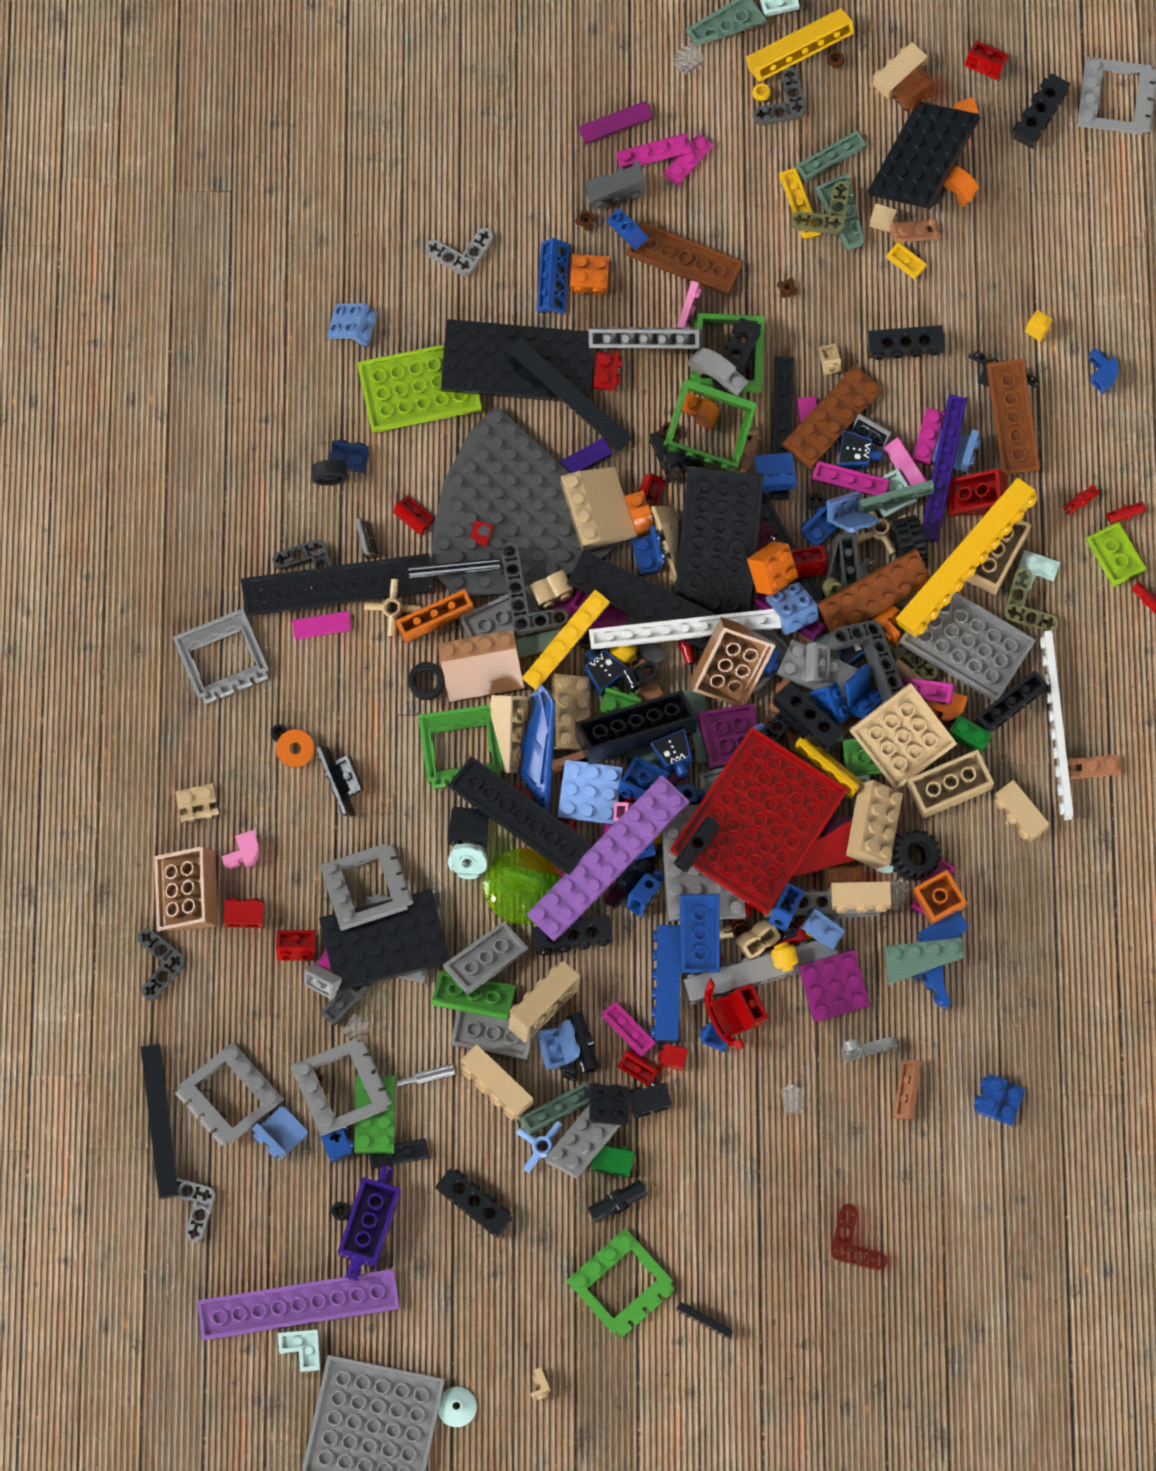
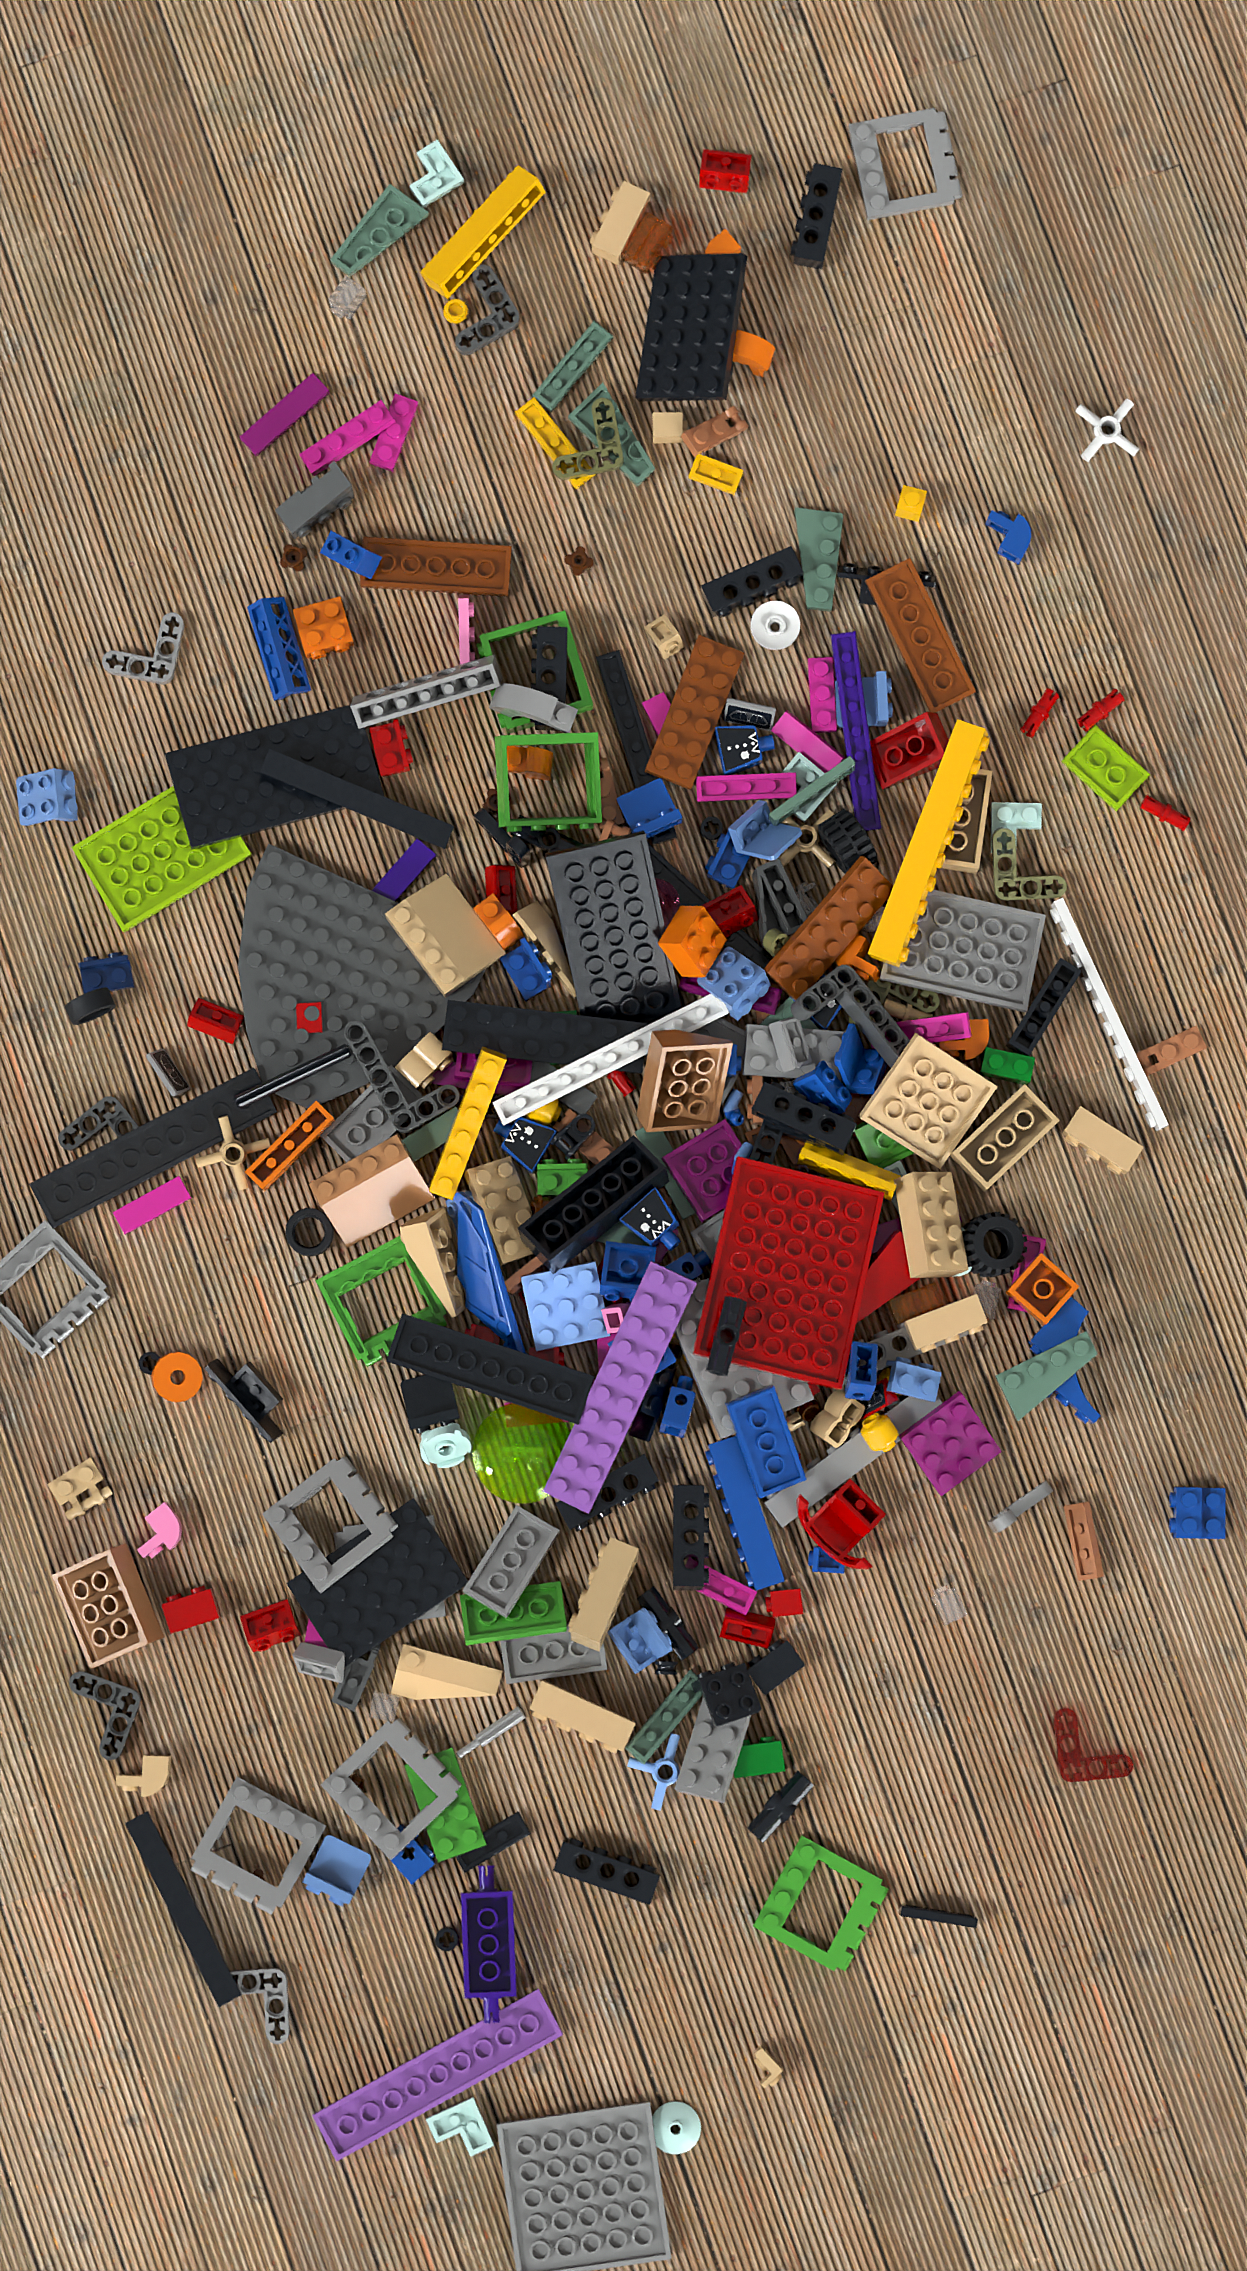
camera: 25 degrees left, 10 degrees up
(172, 1022) = (154, 1775): none -> tan brick
(400, 1020) = (436, 1676): none -> tan wedge
(626, 958) = (684, 1497): none -> black brick
(759, 699) = (732, 1110): none -> arm
(835, 55) = (538, 230): reddish brown plate -> none
(915, 369) = (775, 613): none -> white dish
(961, 338) = (819, 550): none -> sand green wing

